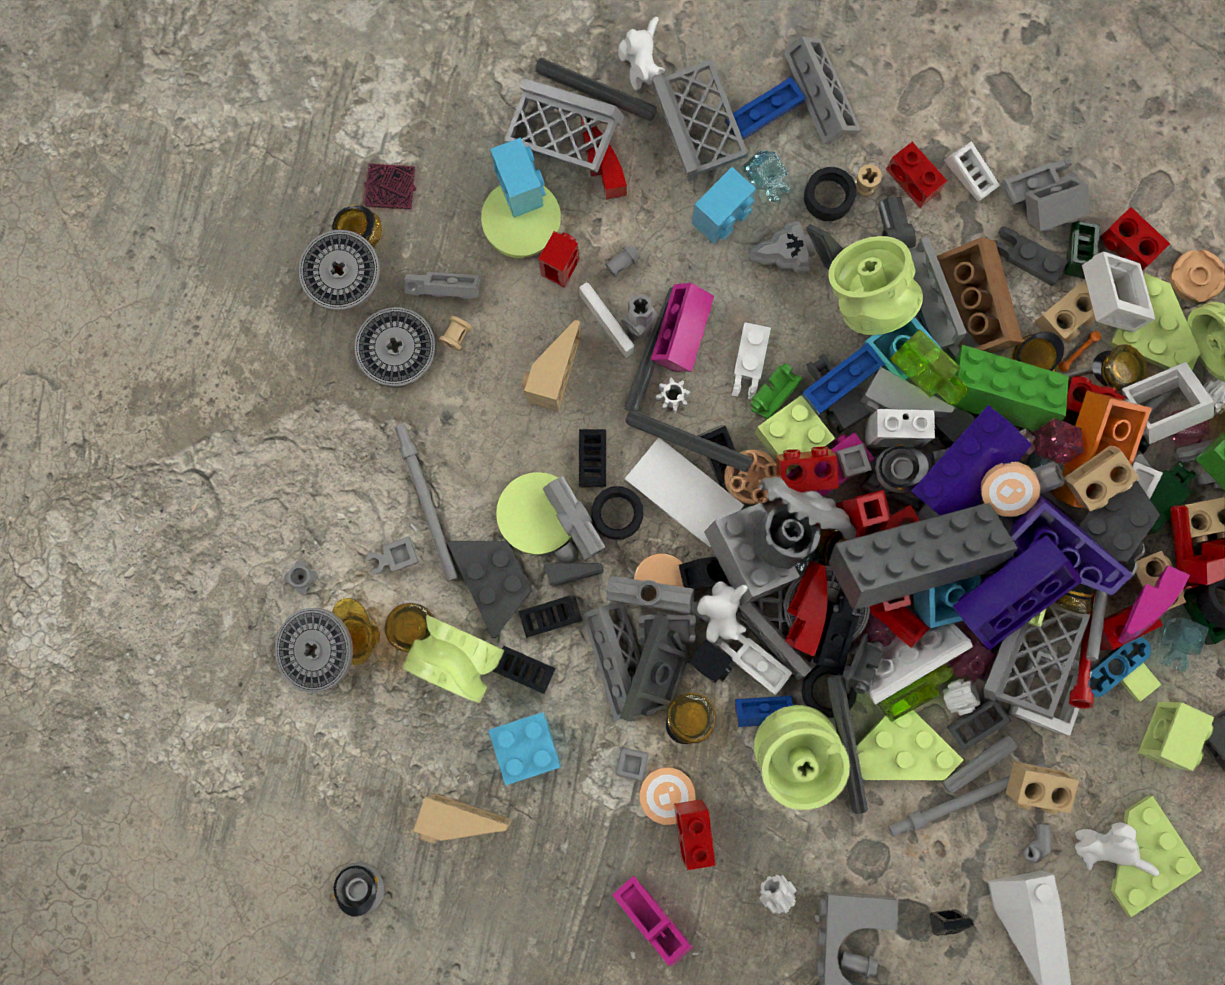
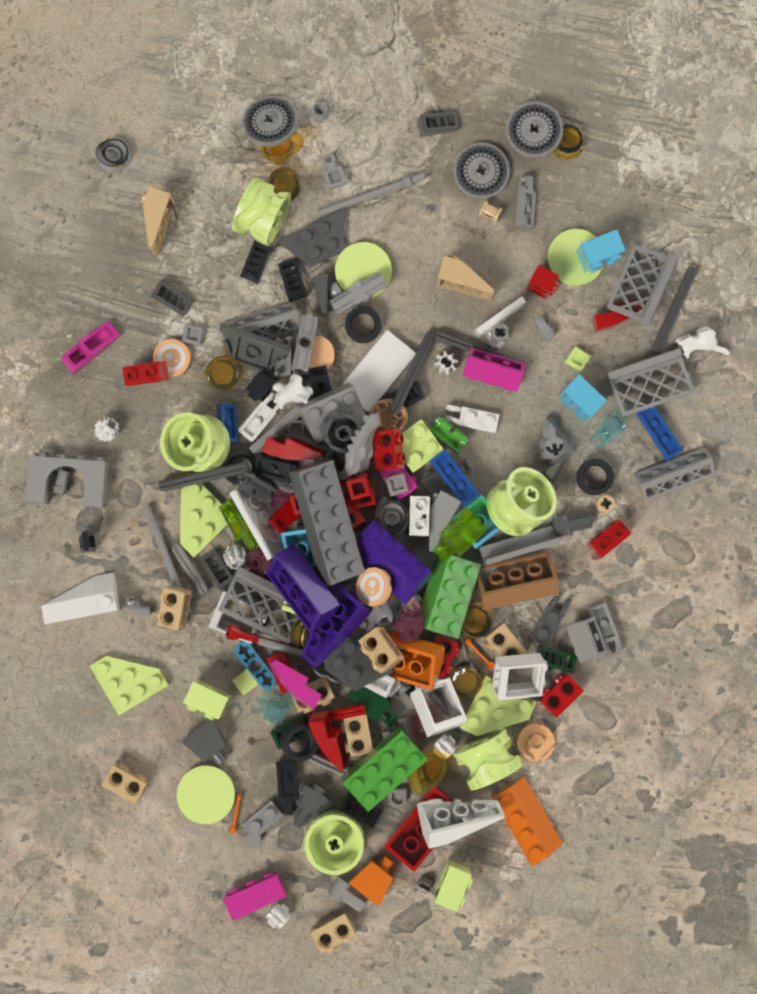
camera: 90 degrees right, 5 degrees up
(326, 424) = (431, 130): none -> dark grey slope
(390, 186) = (599, 164): clear pink piece -> none
(525, 748) = (203, 262): medium azure brick -> none
(566, 819) = (161, 300): none -> dark grey slope
(592, 434) = (411, 300): black slope -> none
(664, 217) = (577, 359): none -> yellowish green tile
(960, 171) = (630, 577): white slope -> none
(1116, 846) = (134, 656): white animal -> none

